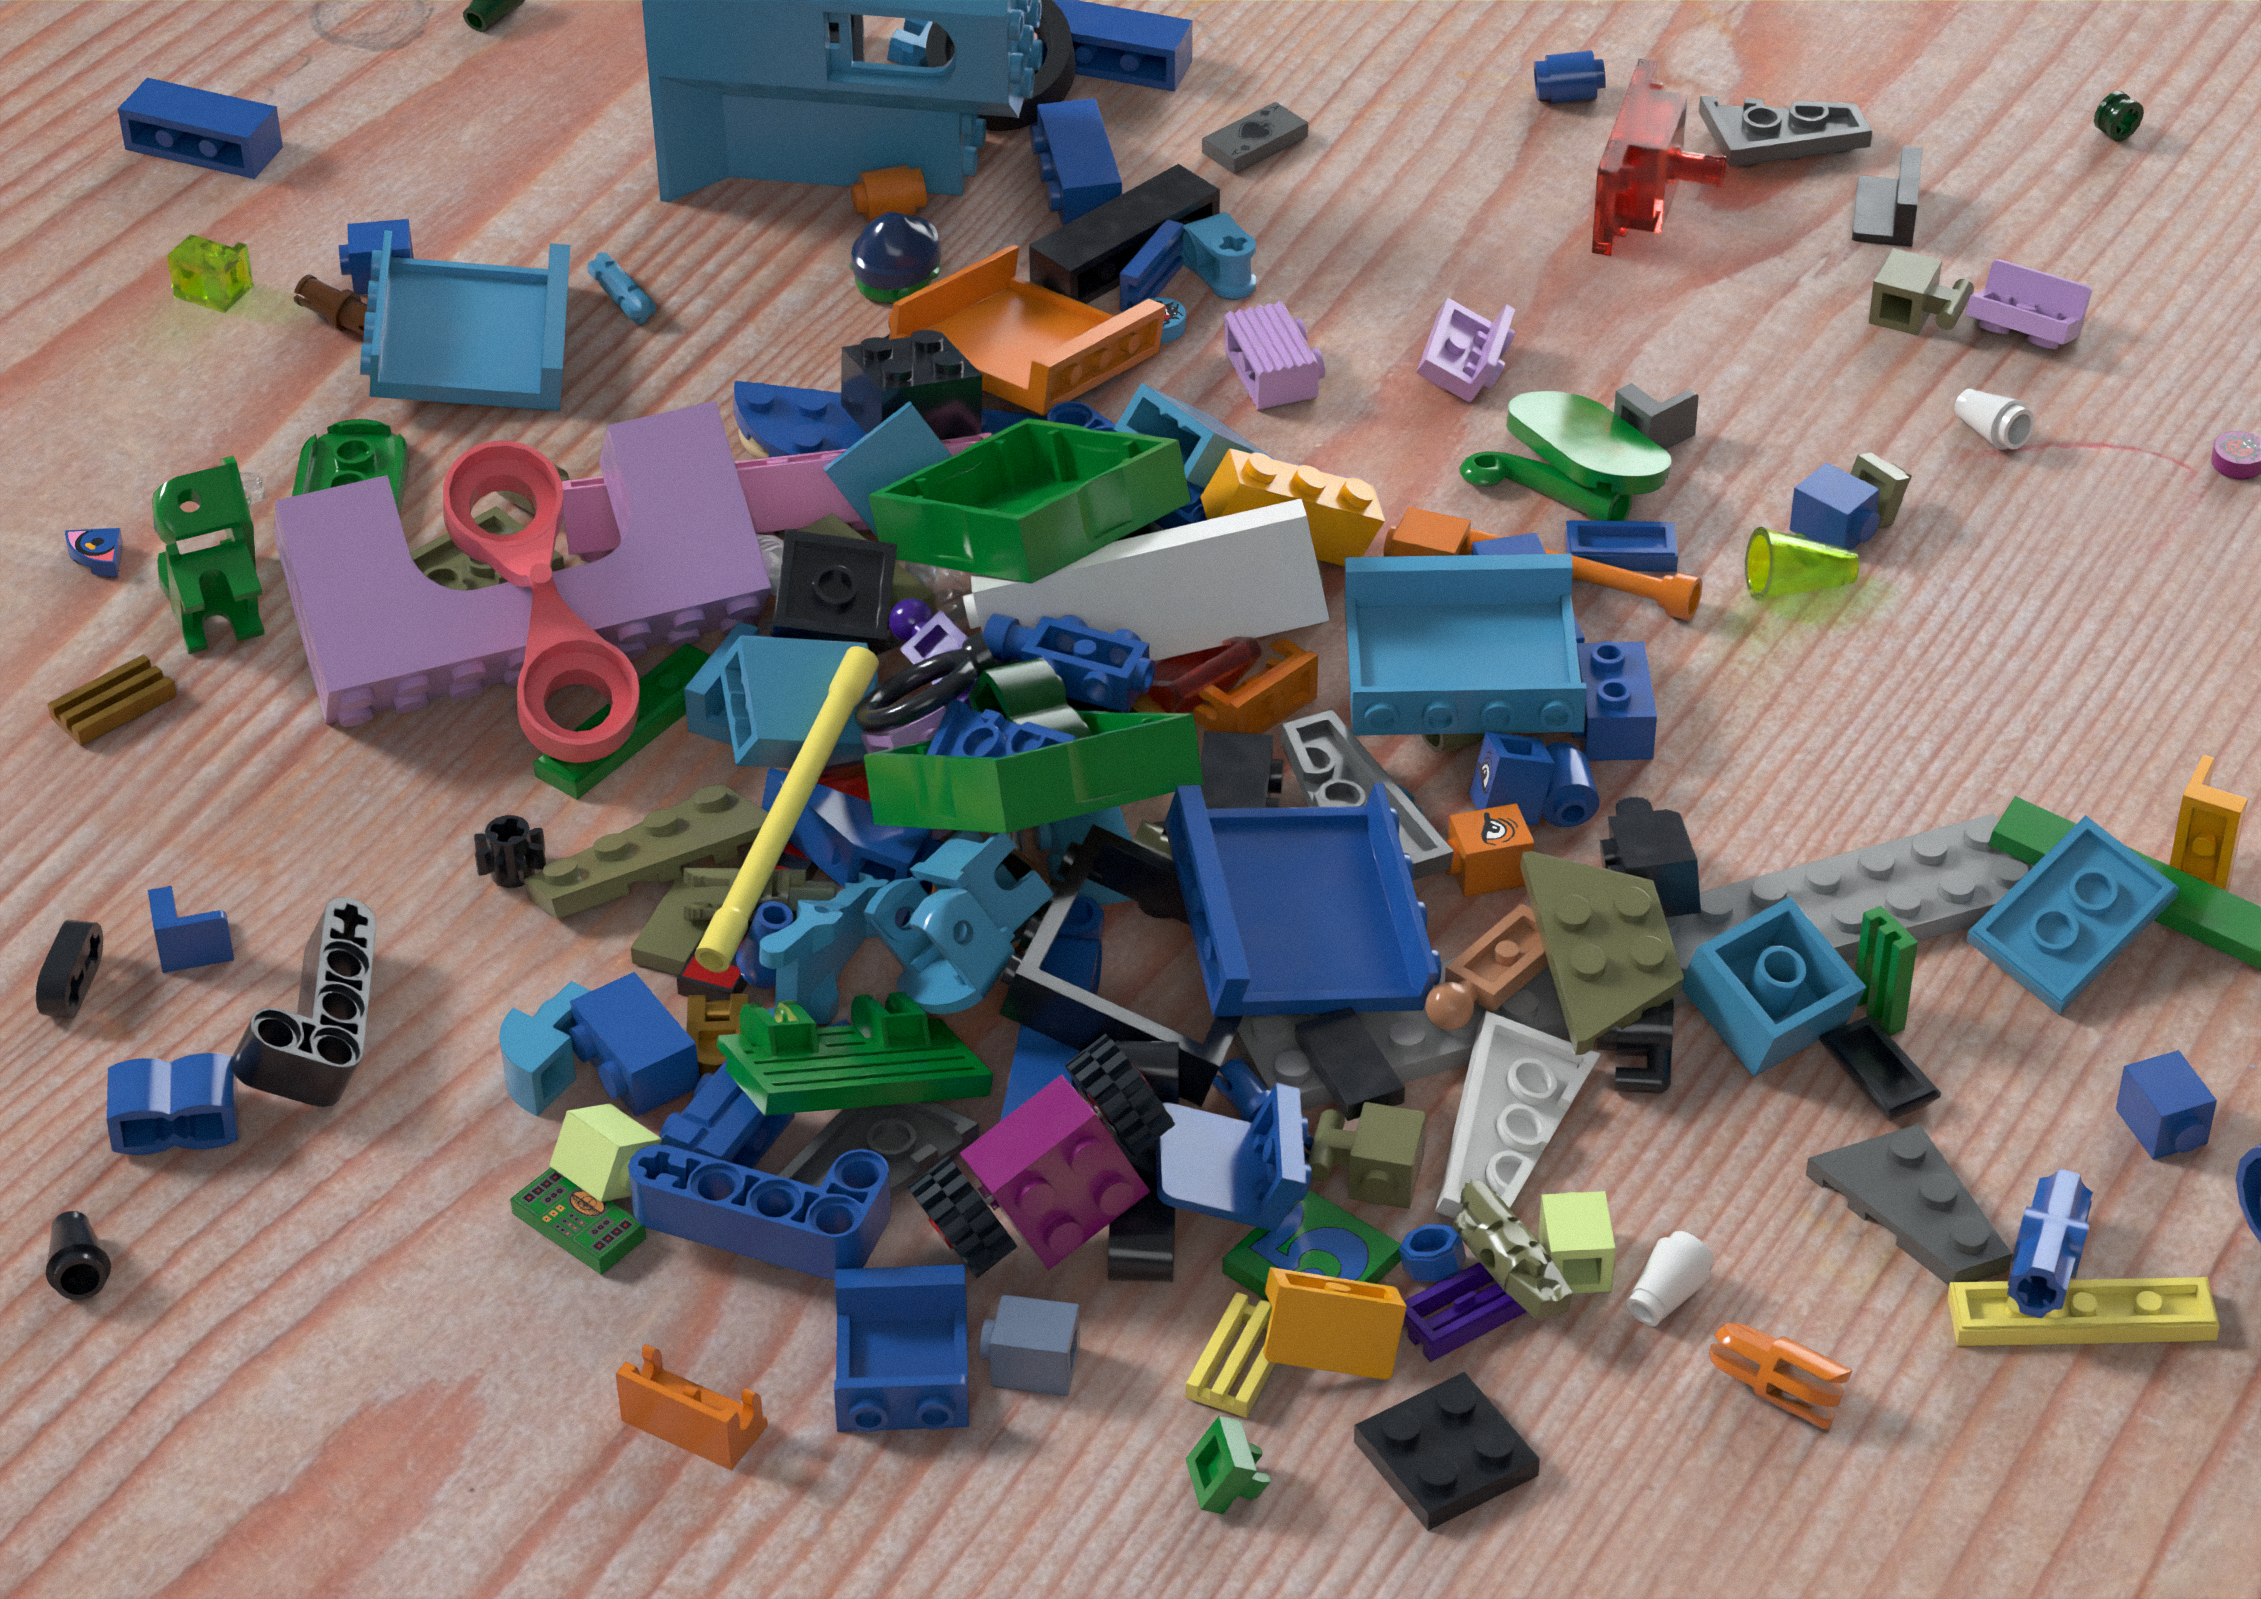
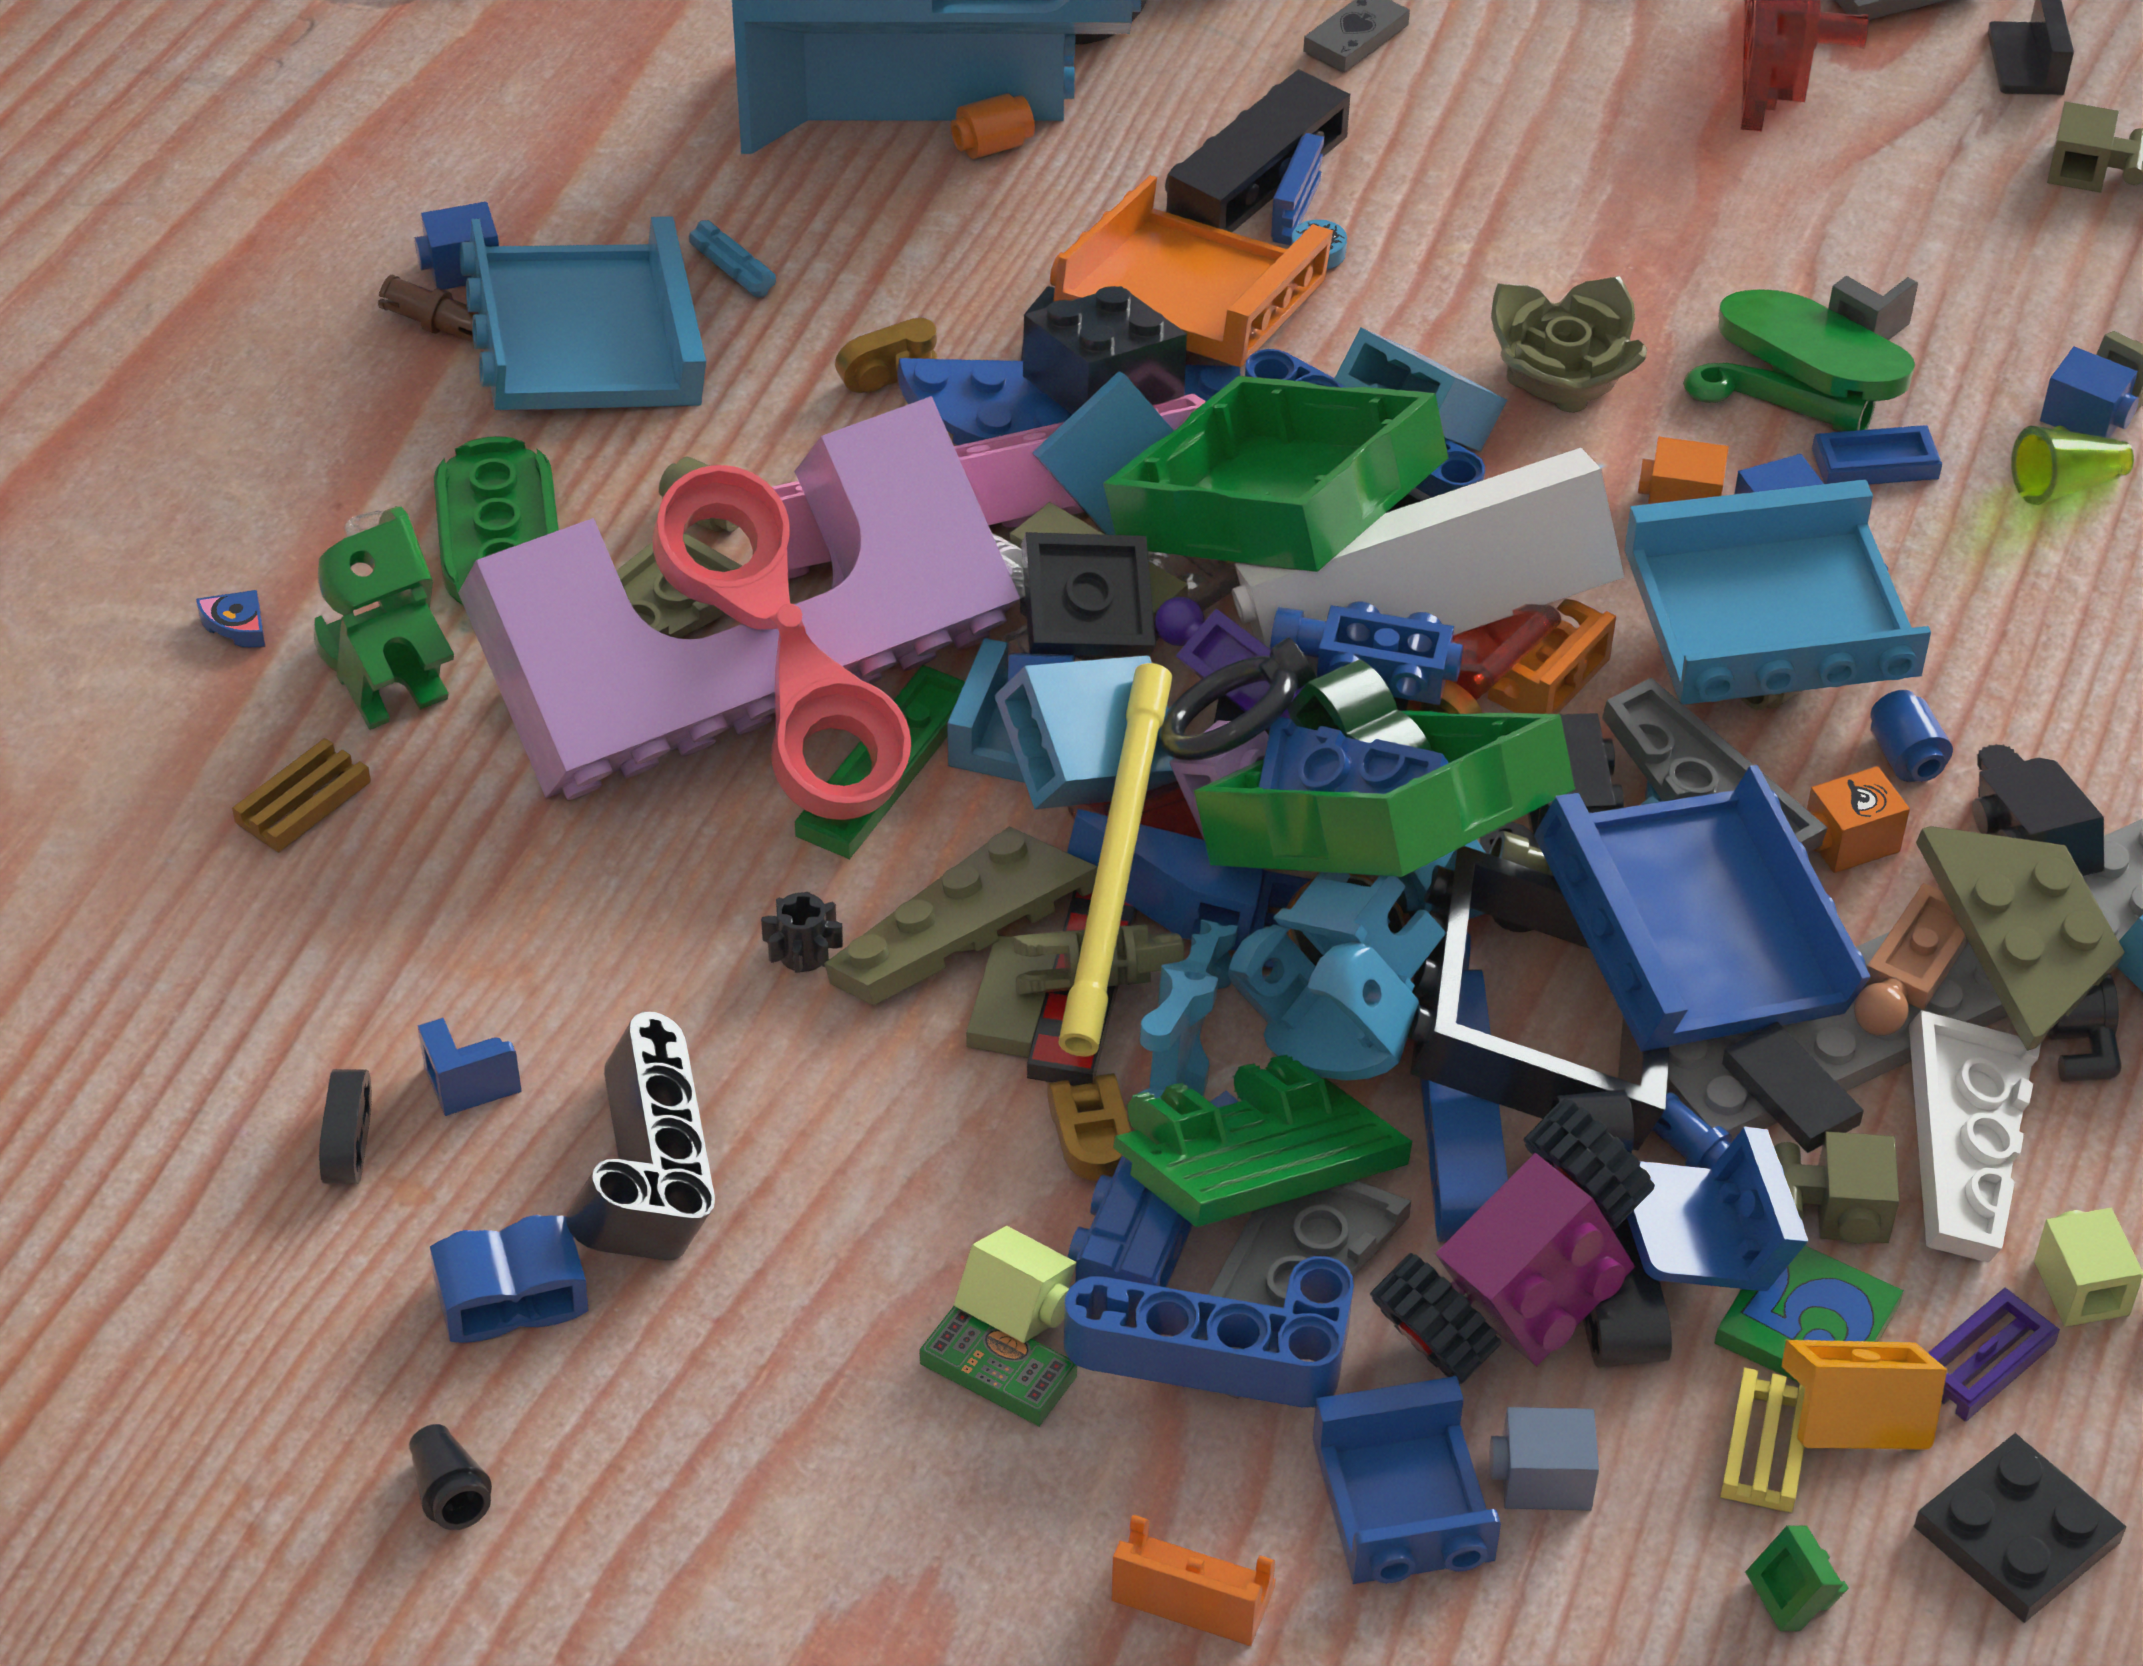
camera: 10 degrees left, 5 degrees up
(200, 128) = (219, 113): blue brick -> none
(210, 272) = (275, 280): clear neon green brick -> none
(539, 1051) = (906, 1164): dark azure brick -> none
(634, 1044) = (1009, 1150): blue brick -> none
(715, 377) = (874, 357): none -> pearl gold plate
(770, 918) = (1126, 1007): blue cone -> none
(895, 257) = (1023, 199): dark blue hair -> none
(1074, 158) = (1182, 73): blue brick -> none
(1220, 255) = (1365, 166): dark azure piece -> none
(1272, 355) = (1450, 273): lavender brick -> none
(1339, 510) = (1512, 433): light orange brick -> none
(1354, 427) = (1567, 347): none -> olive brick
(1432, 1253) = (1938, 1296): blue tile -> none
(1466, 349) = (1655, 252): lavender bracket -> none
(1511, 1252) = (2031, 1290): olive hinge -> none
(1512, 772) = (1859, 733): blue brick -> none
(1618, 701) = (1957, 646): blue brick -> none
(1677, 593) = (1952, 505): orange piece -> none

